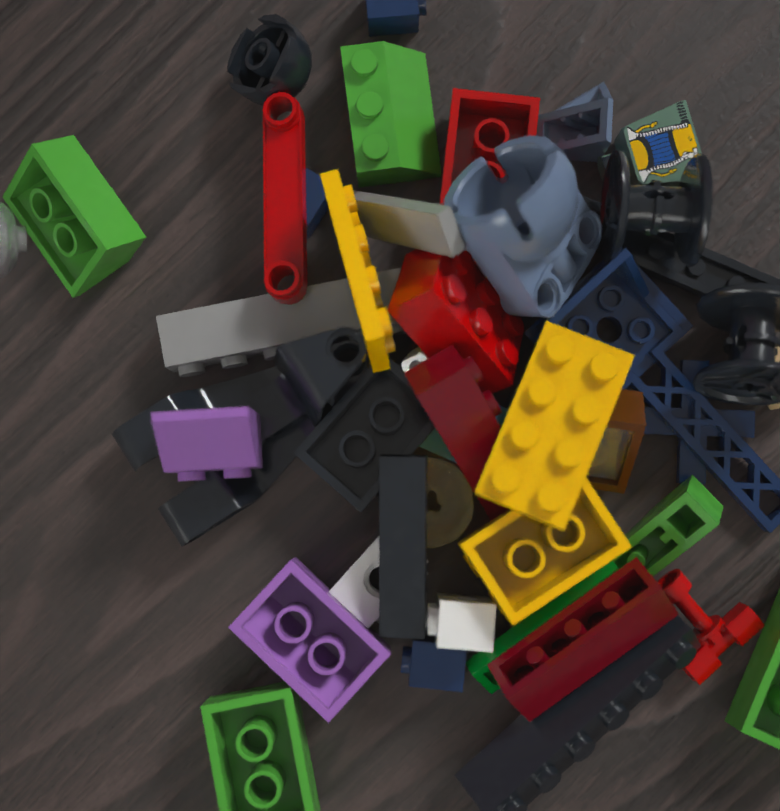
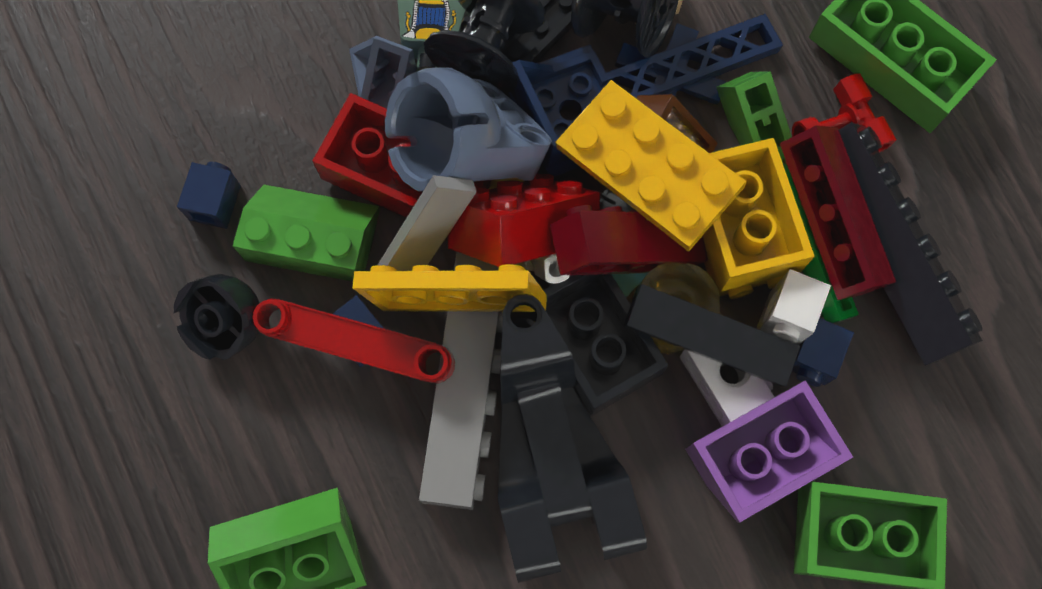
camera: 75 degrees left, 10 degrees down
(209, 441) = (565, 474): medium lavender slope -> none

